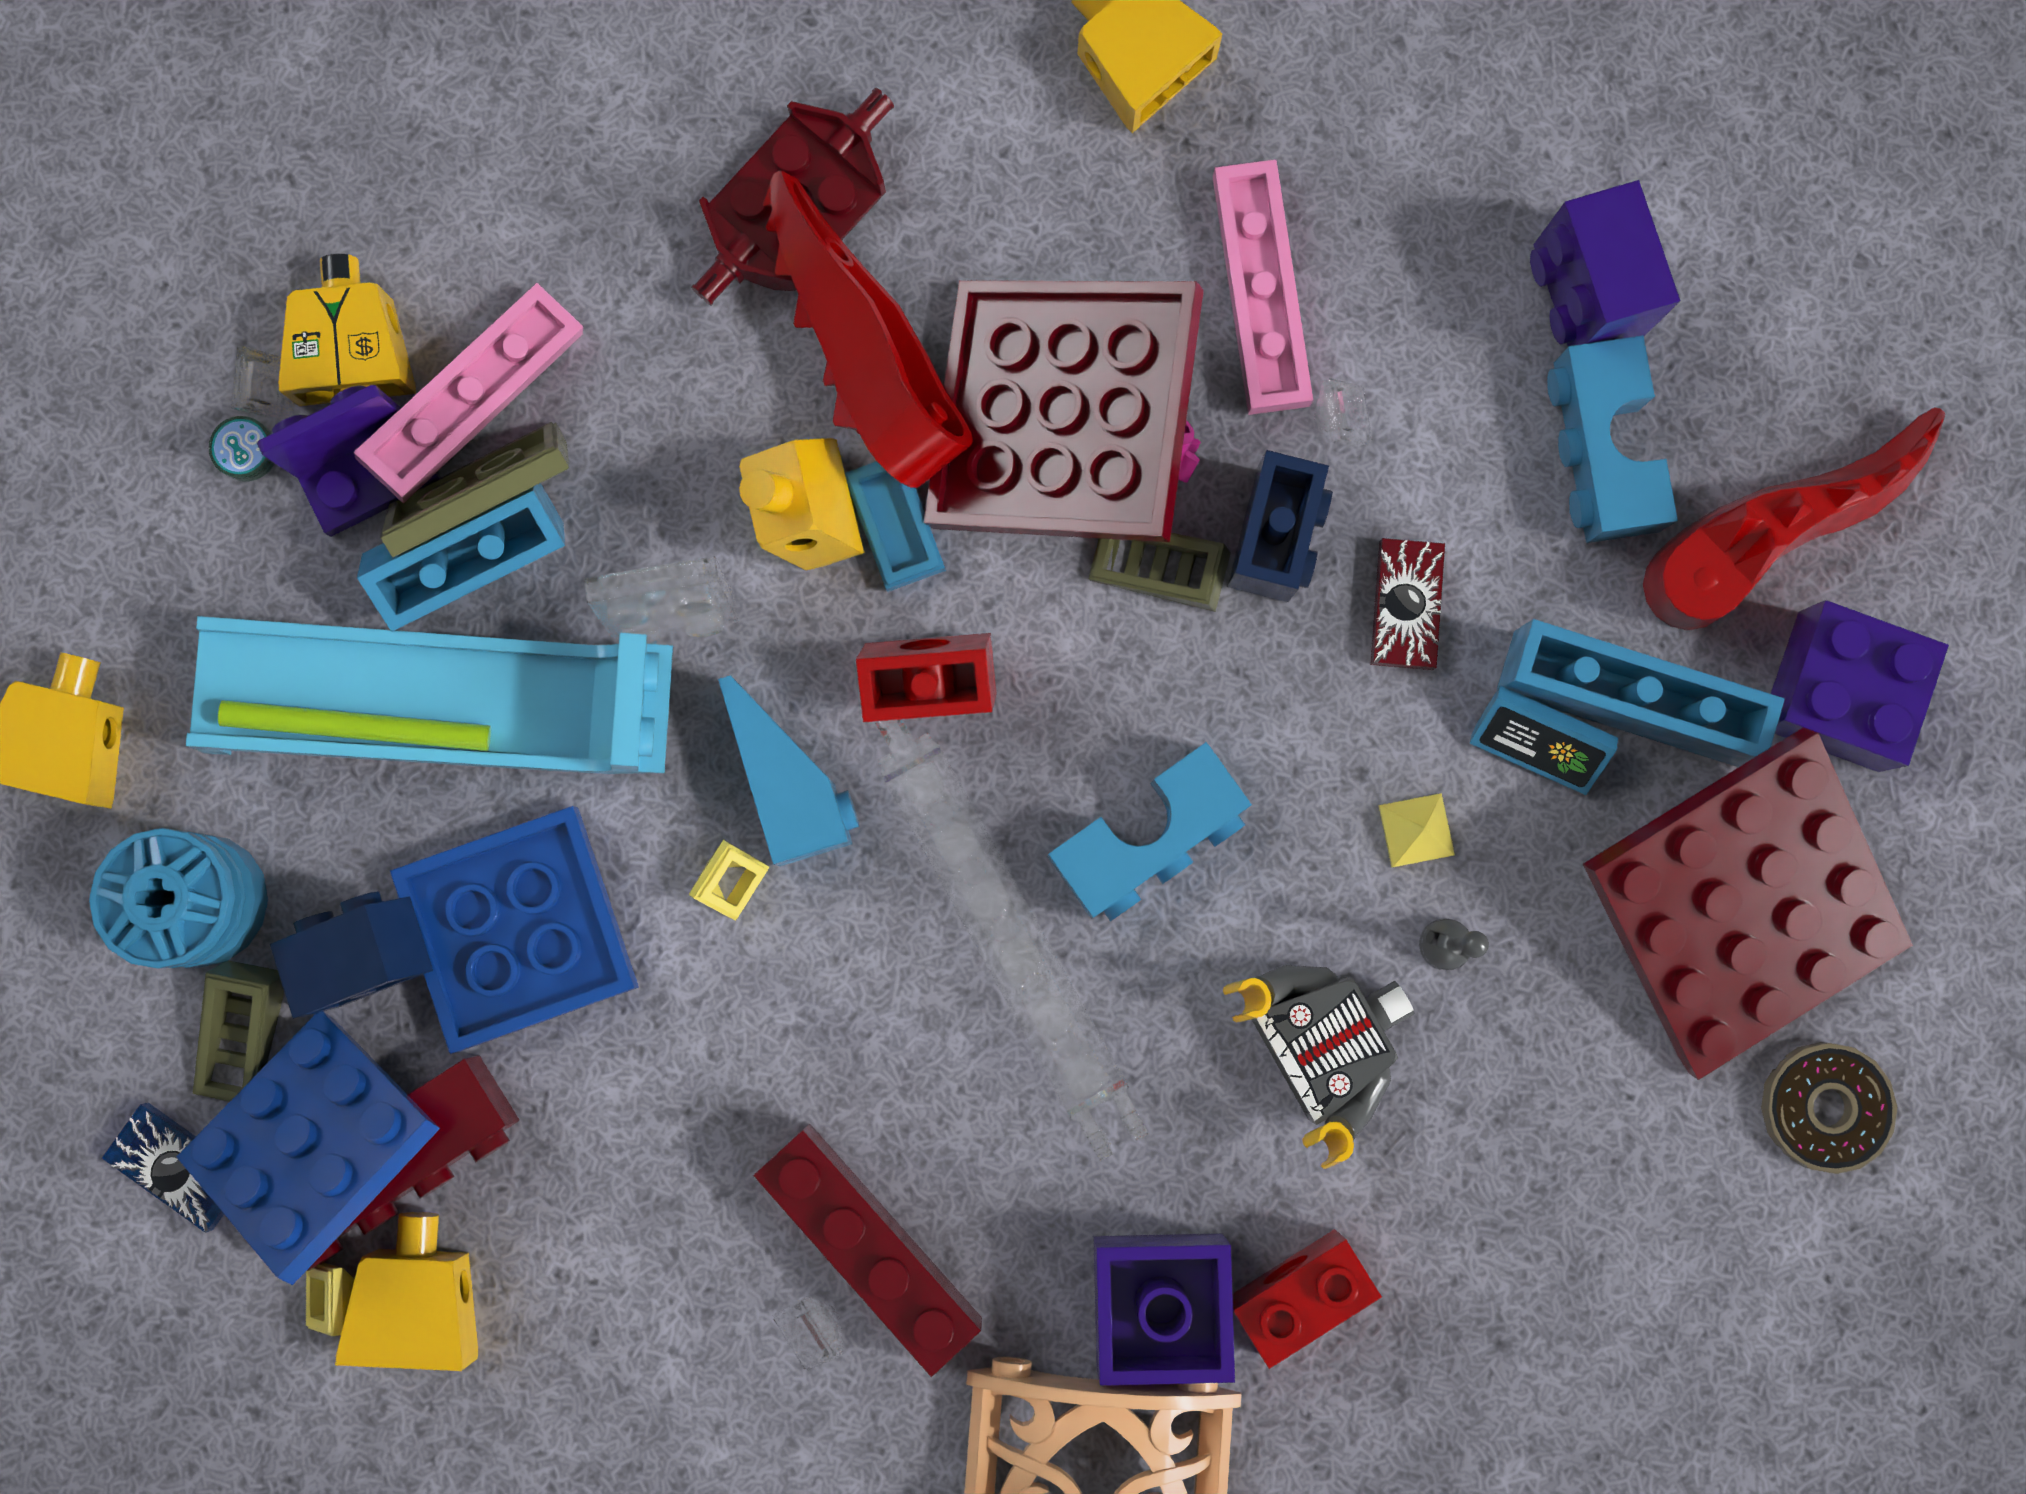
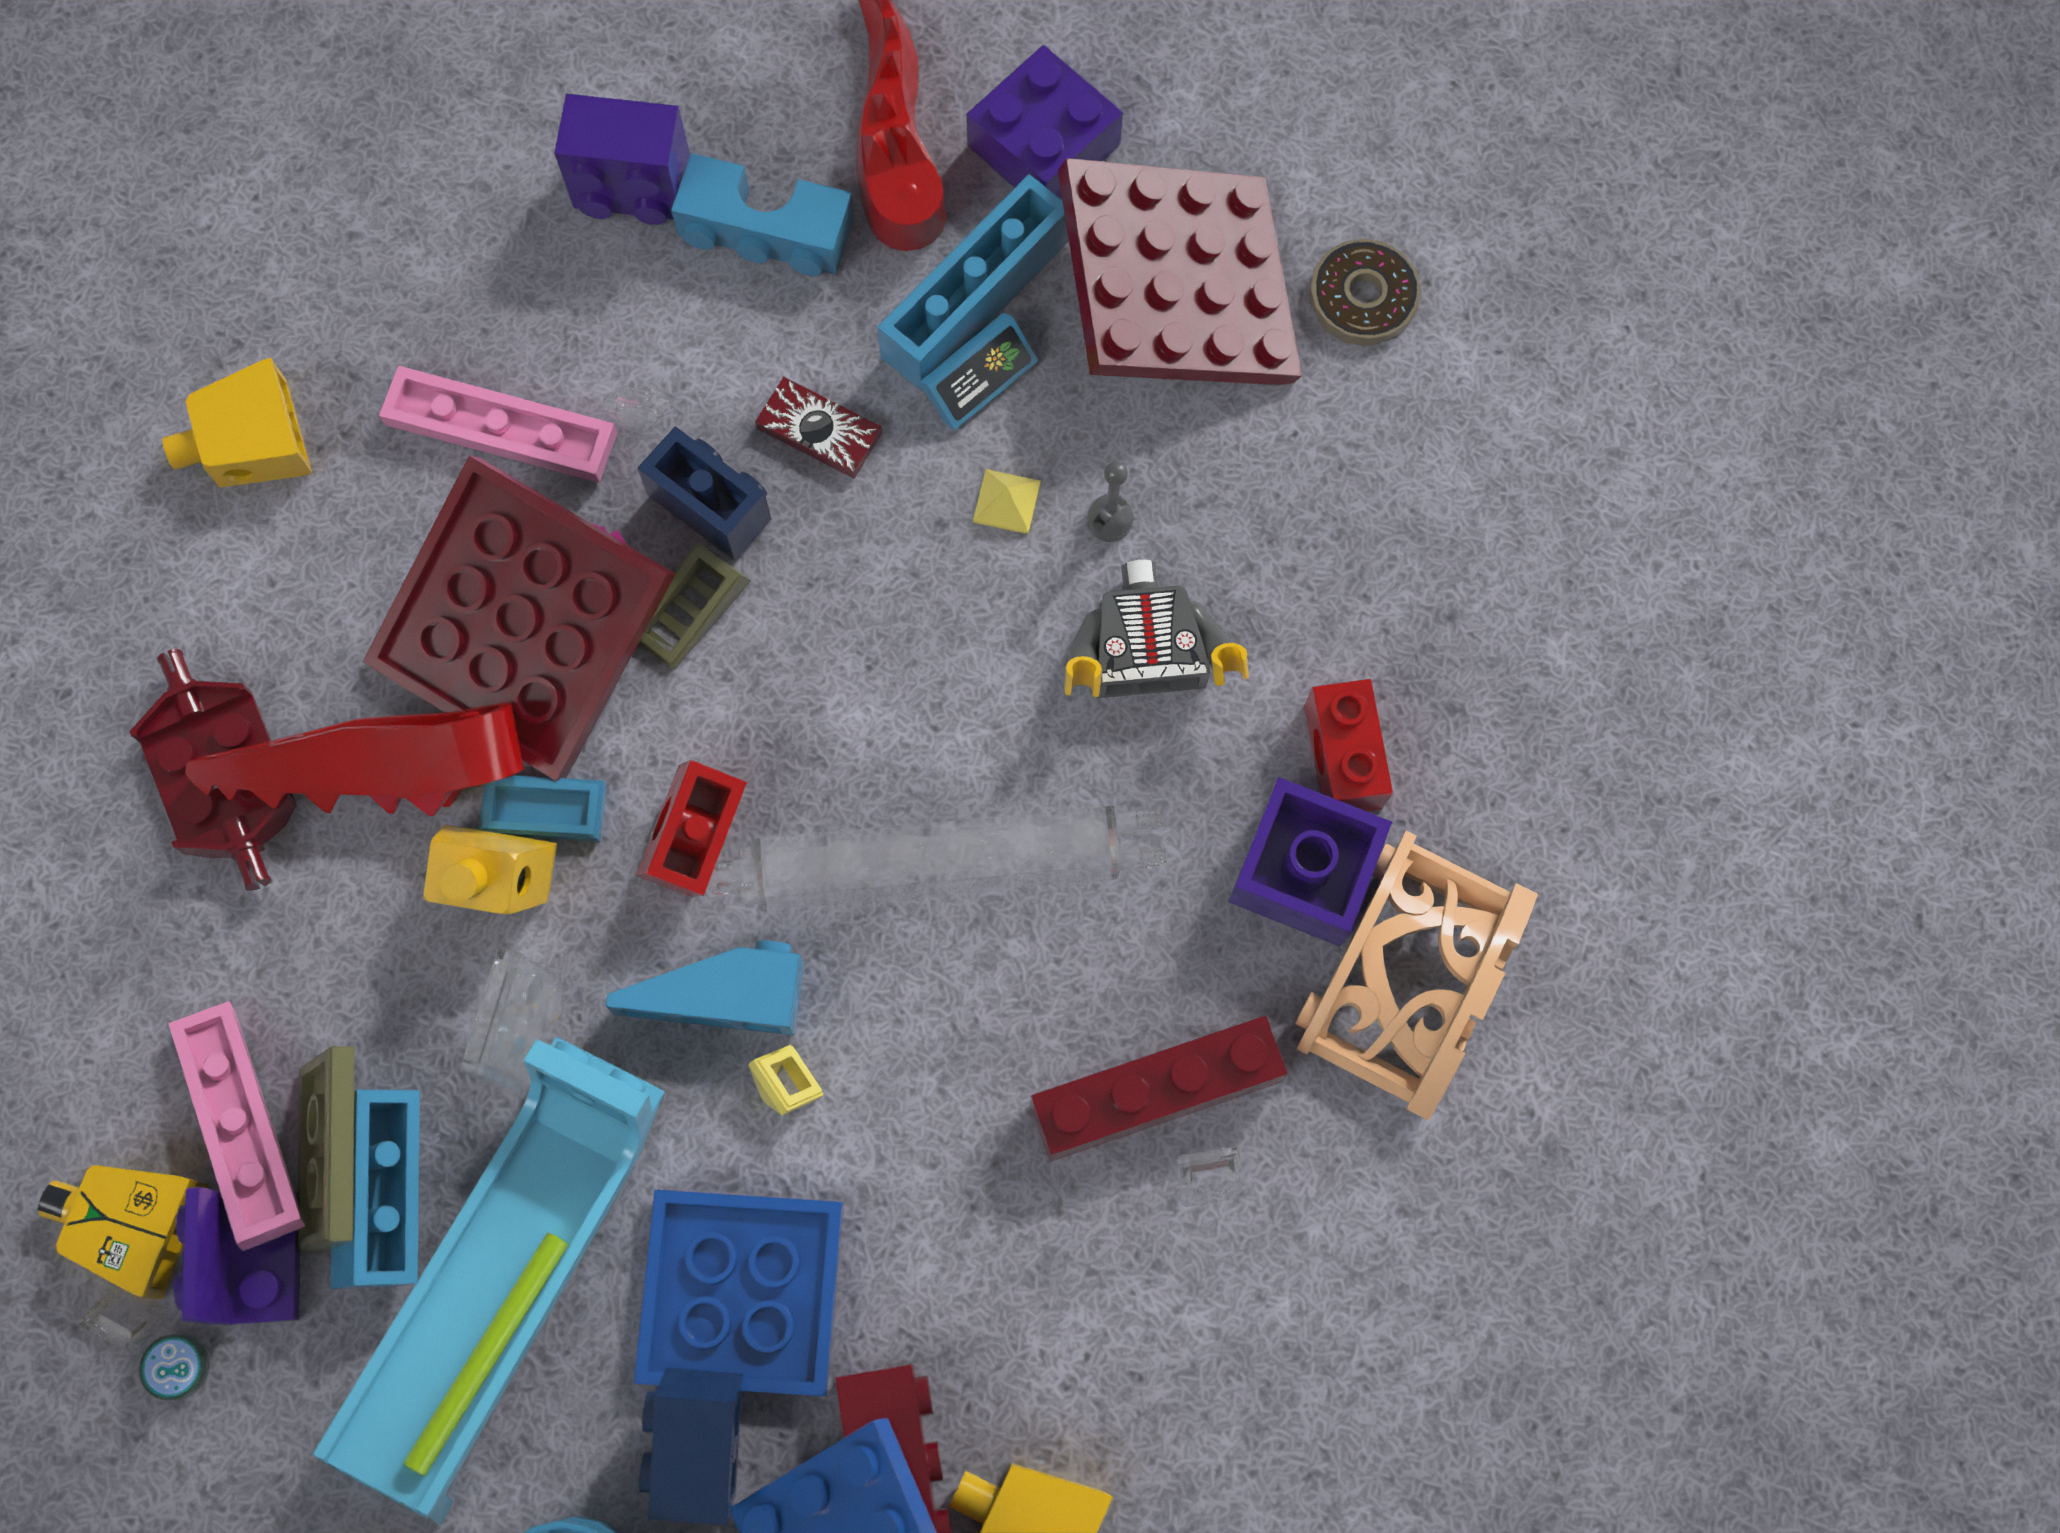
camera: 70 degrees left, 10 degrees down
(1199, 804) = (904, 657): dark azure arch -> none

